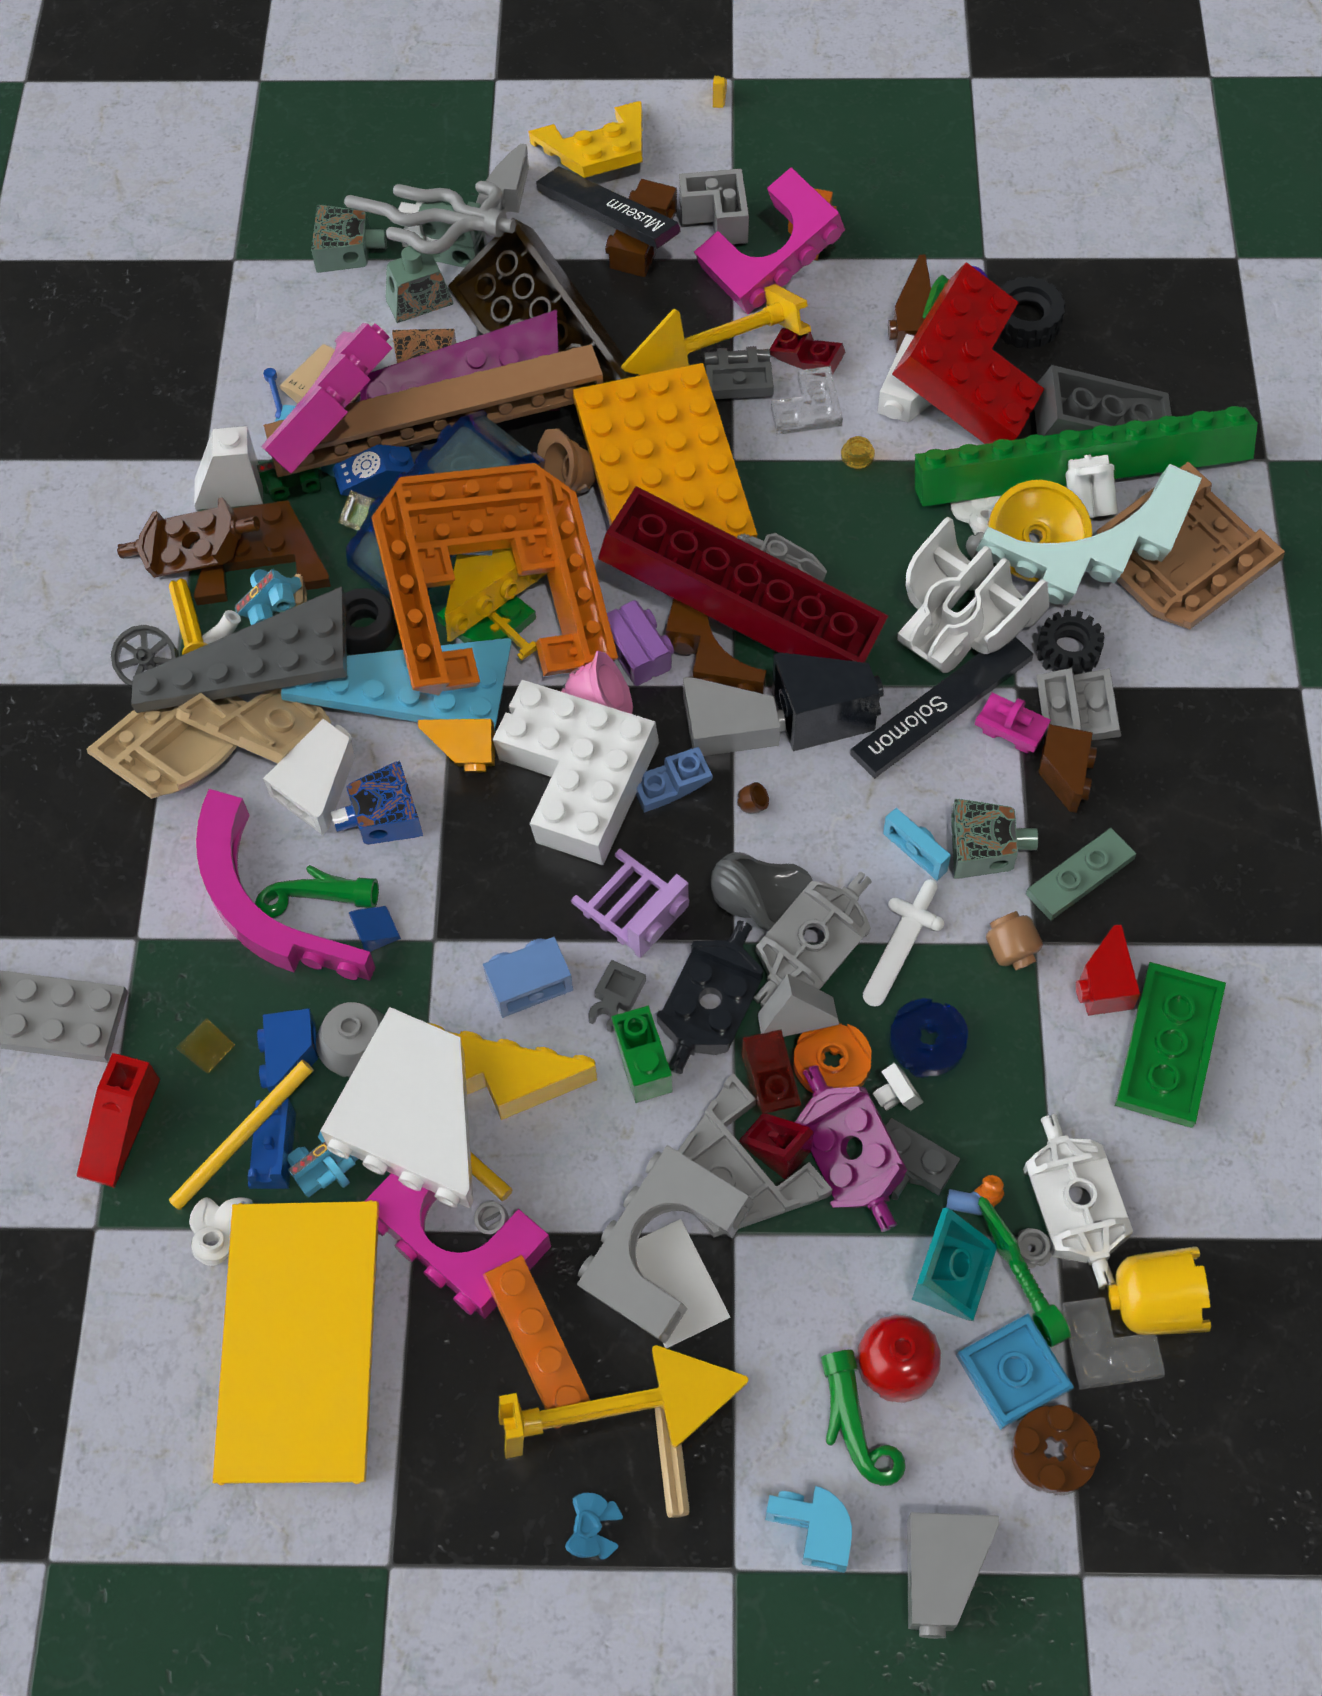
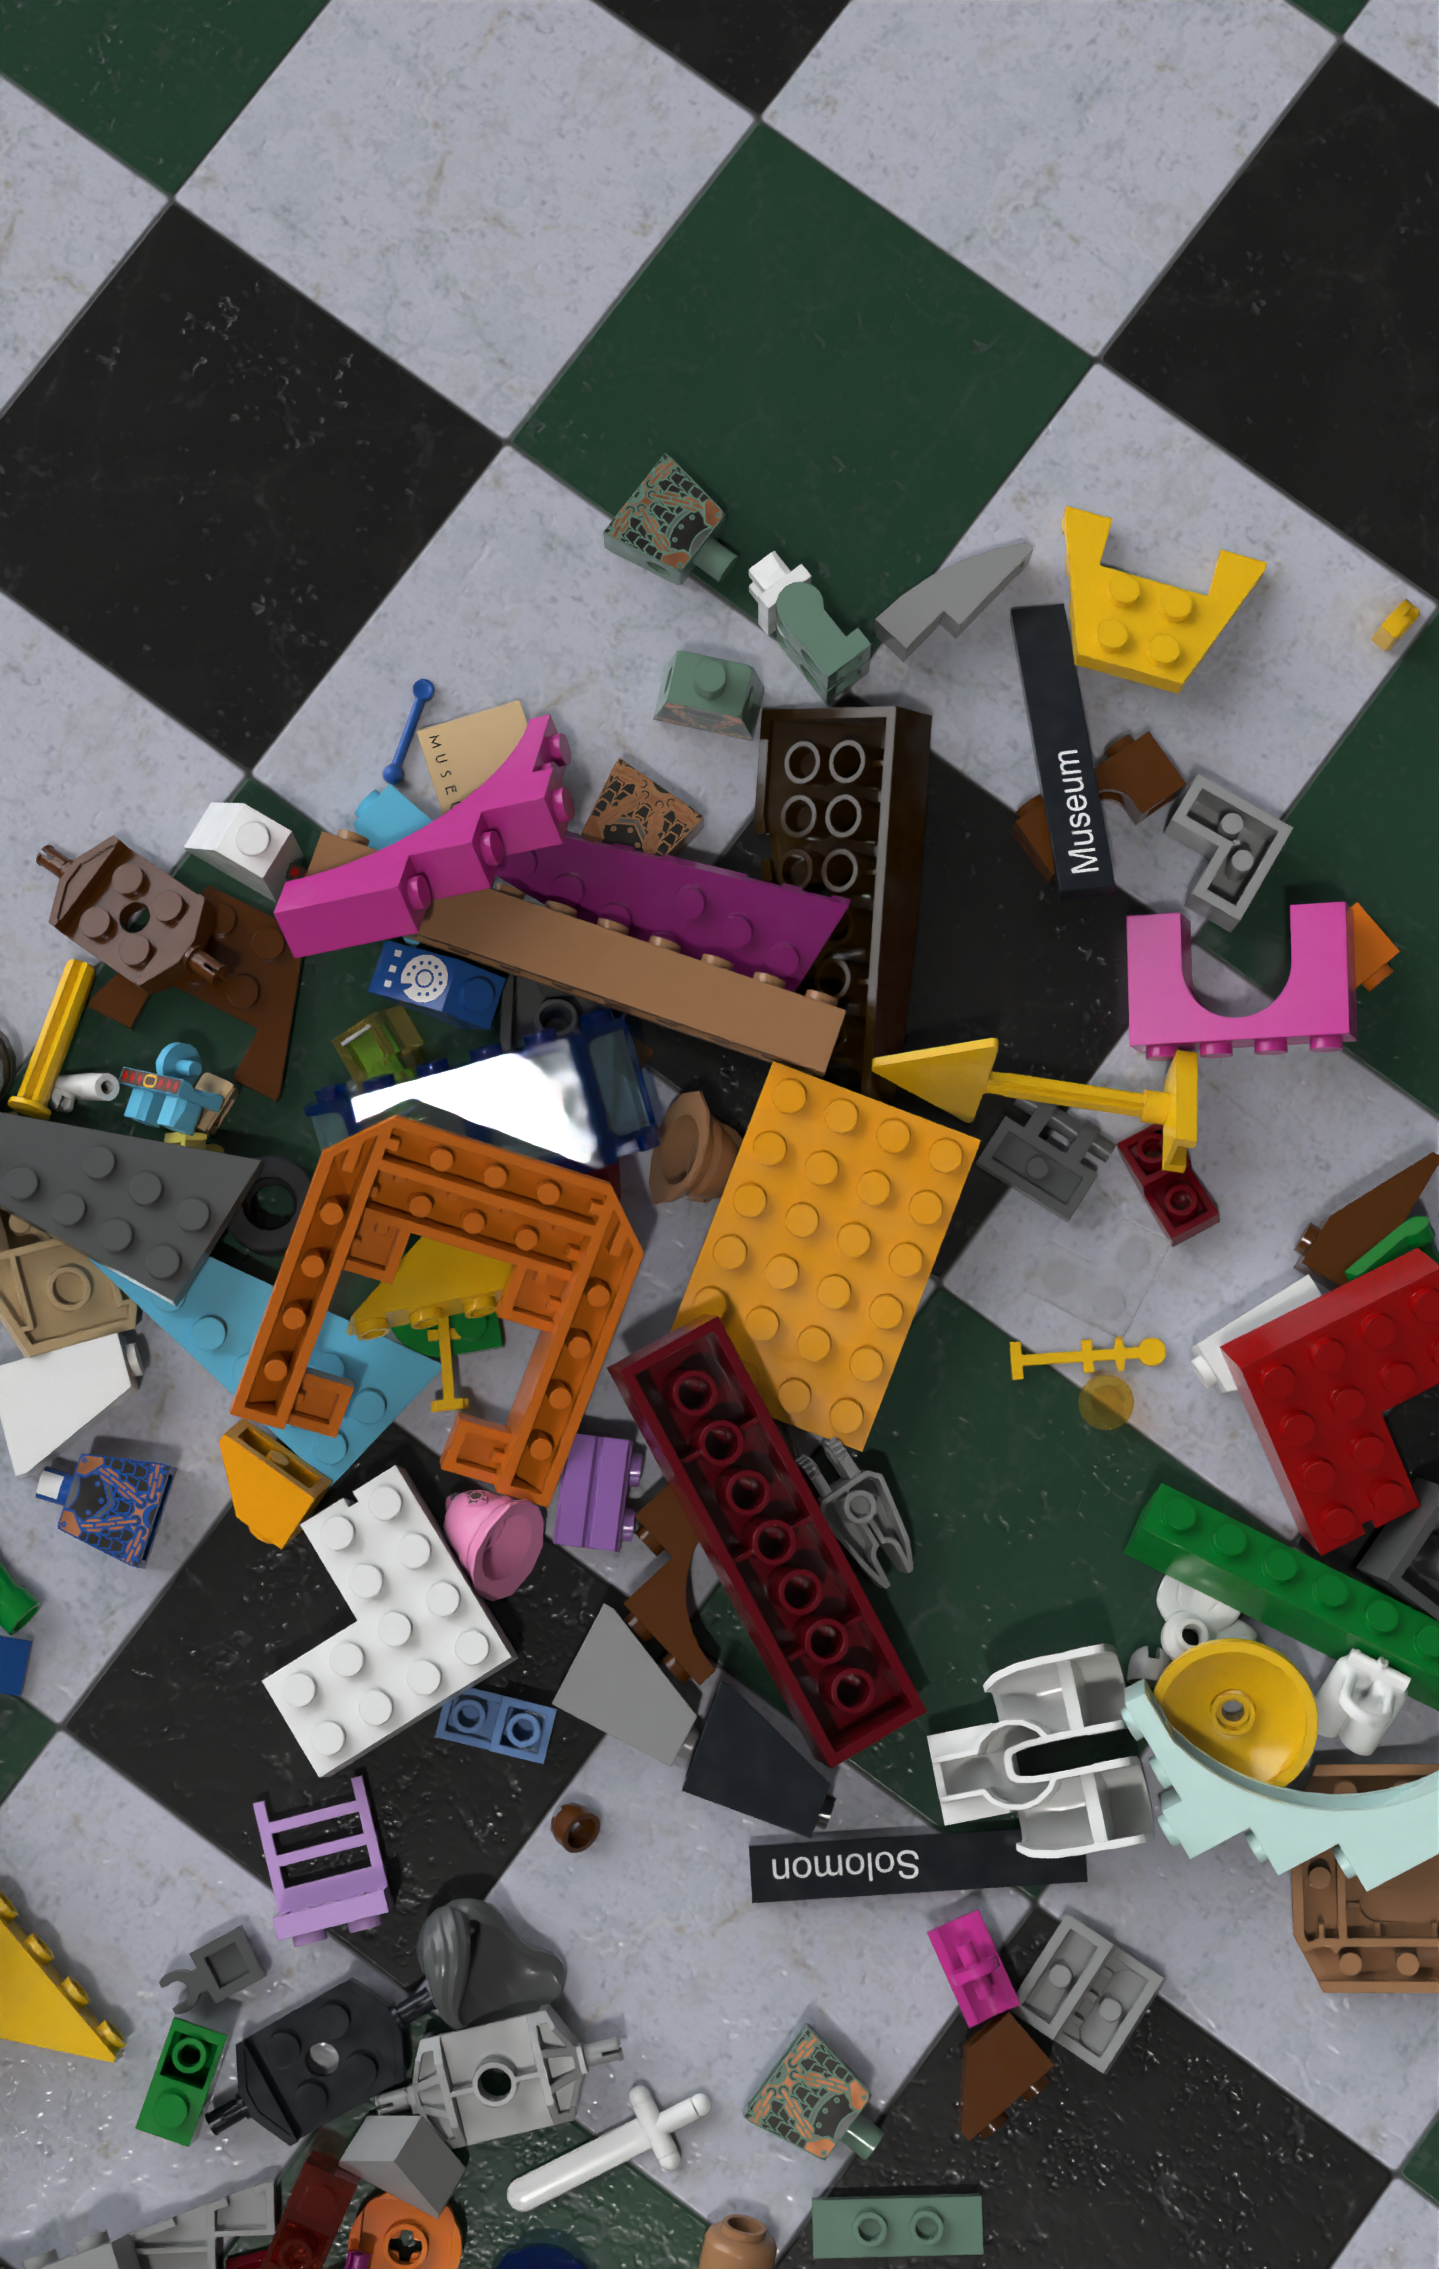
camera: 30 degrees right, 20 degrees up
(463, 218) = (833, 681): light grey plant -> none
(528, 976) = (127, 1871): medium blue brick -> none
(859, 424) = (1149, 1352): none -> yellow piece
(917, 843) = (727, 2042): medium azure plate -> none
(1075, 628) = (1179, 1910): black tyre -> none

